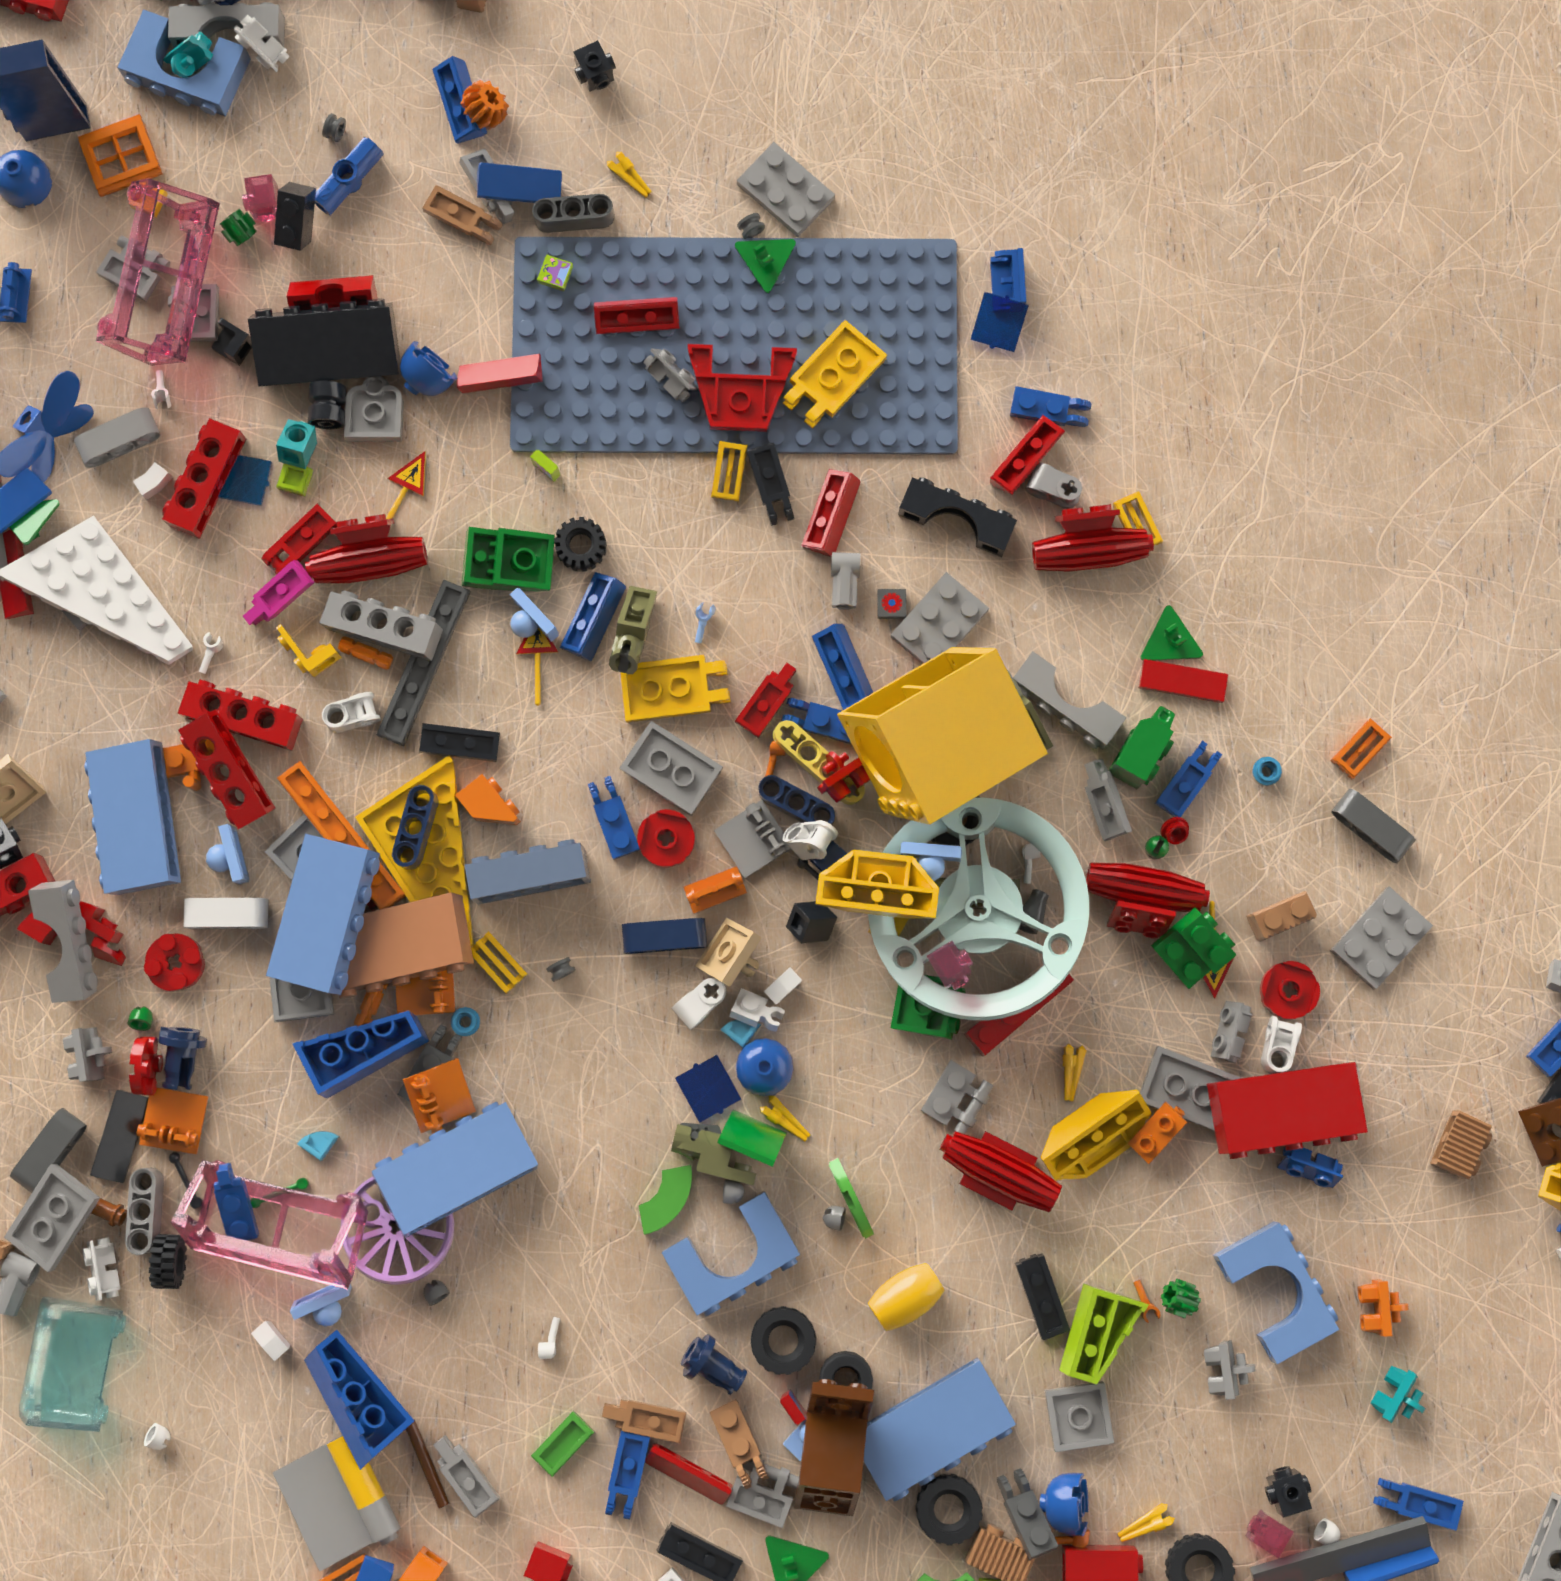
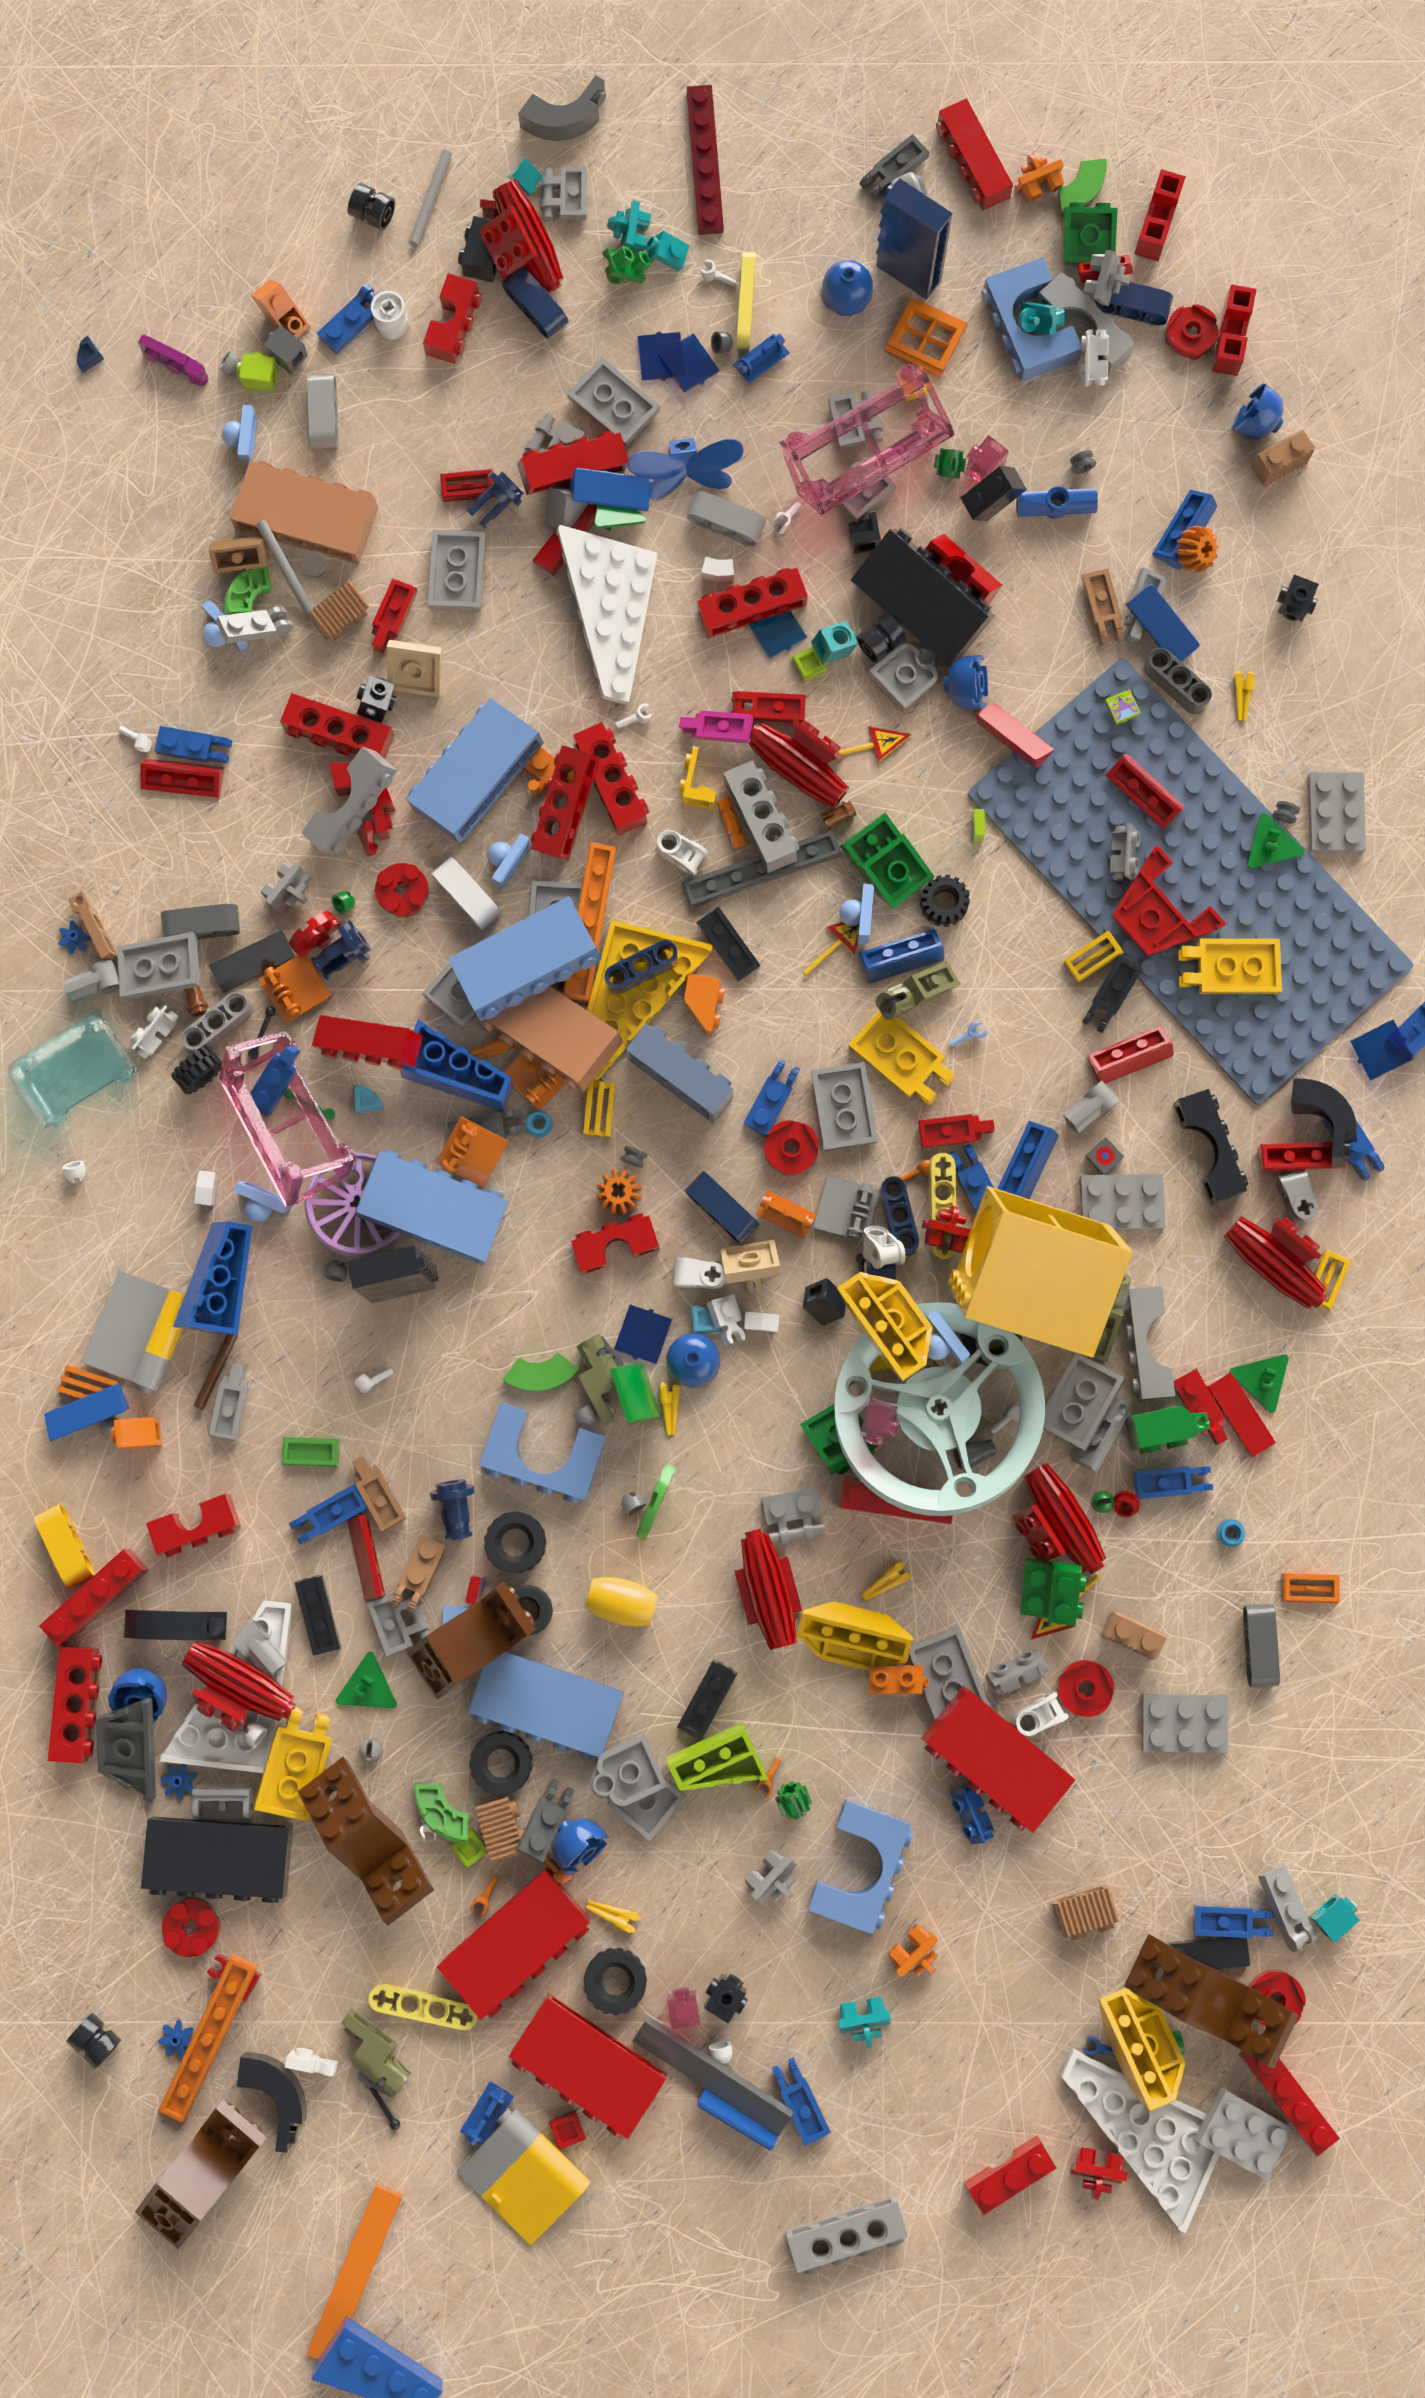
camera: 50 degrees right, 0 degrees up
(272, 1101) = (366, 1041): none -> red brick
(437, 564) = (839, 815): none -> dark orange pin
(482, 1251) = (392, 1274): none -> black brick
(572, 1014) = (609, 1192): none -> orange gear
(603, 1069) = (591, 1247): none -> red arch
(1012, 397) = (1326, 1102): none -> black arch
(1046, 1413) = (627, 1772): none -> light grey plate
(1067, 792) = (1081, 1401): none -> light grey plate
(1143, 703) = (1198, 1399): none -> red hinge

